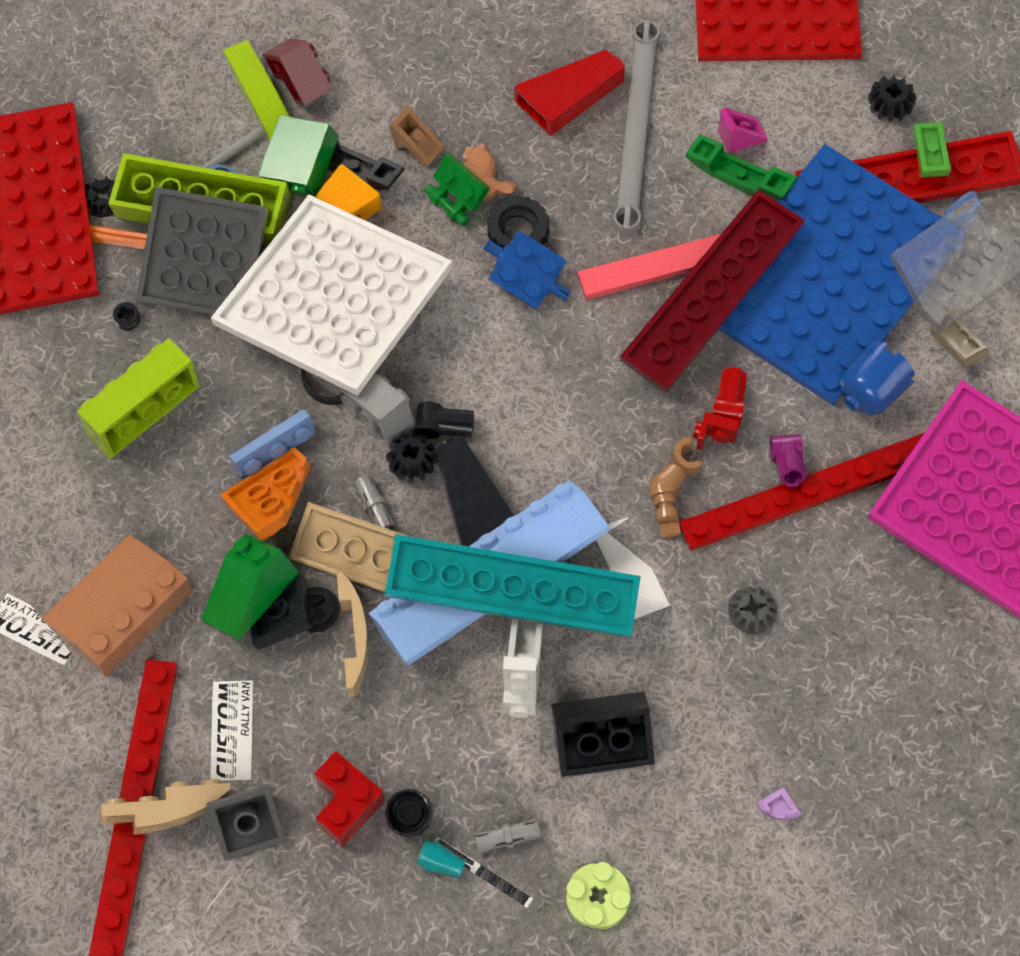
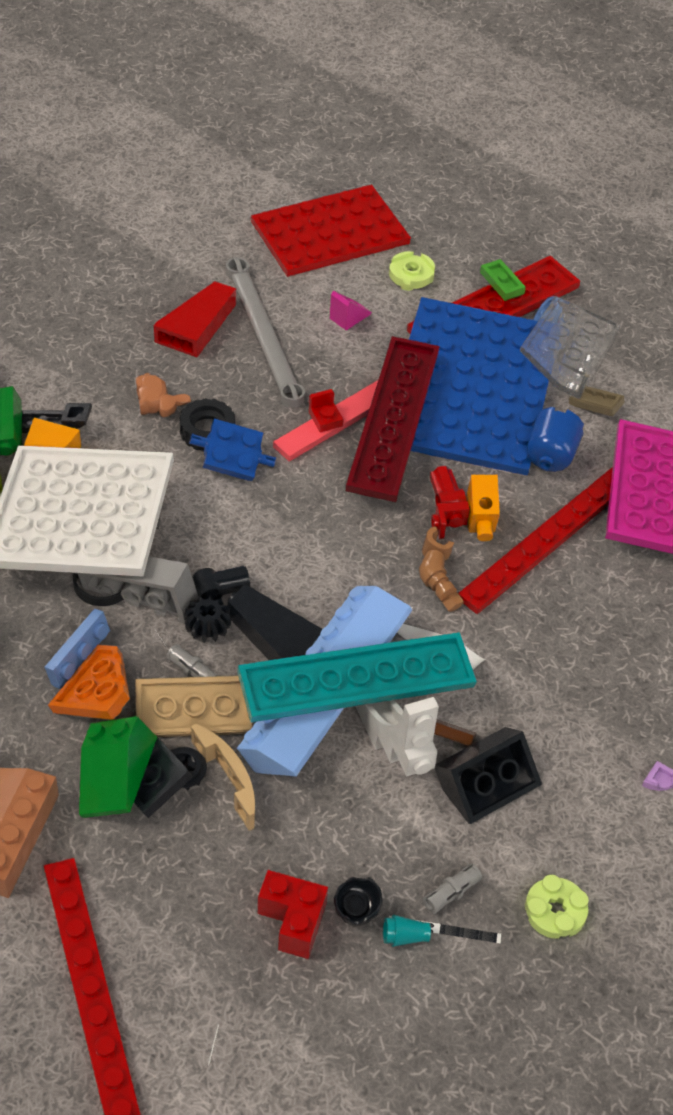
camera: 30 degrees left, 15 degrees down
(179, 805) = (122, 992): tan slope -> none
(231, 730) = (154, 899): white sticker -> none
(246, 821) = (210, 967): dark grey slope -> none
(413, 134) = (84, 380): medium nougat slope -> none
(462, 184) = (144, 403): green plate -> none
(585, 669) = (454, 732): none -> reddish brown tile
(646, 255) = (324, 411): none -> red bracket
(736, 172) = (363, 340): green slope -> none
(744, 619) = (552, 647): dark grey gear -> none
(756, 425) = (483, 512): none -> light orange torso
(788, 455) = (516, 514): magenta piece -> none
(839, 112) = (411, 279): none -> yellowish green plate
(892, 98) = (451, 258): black gear -> none

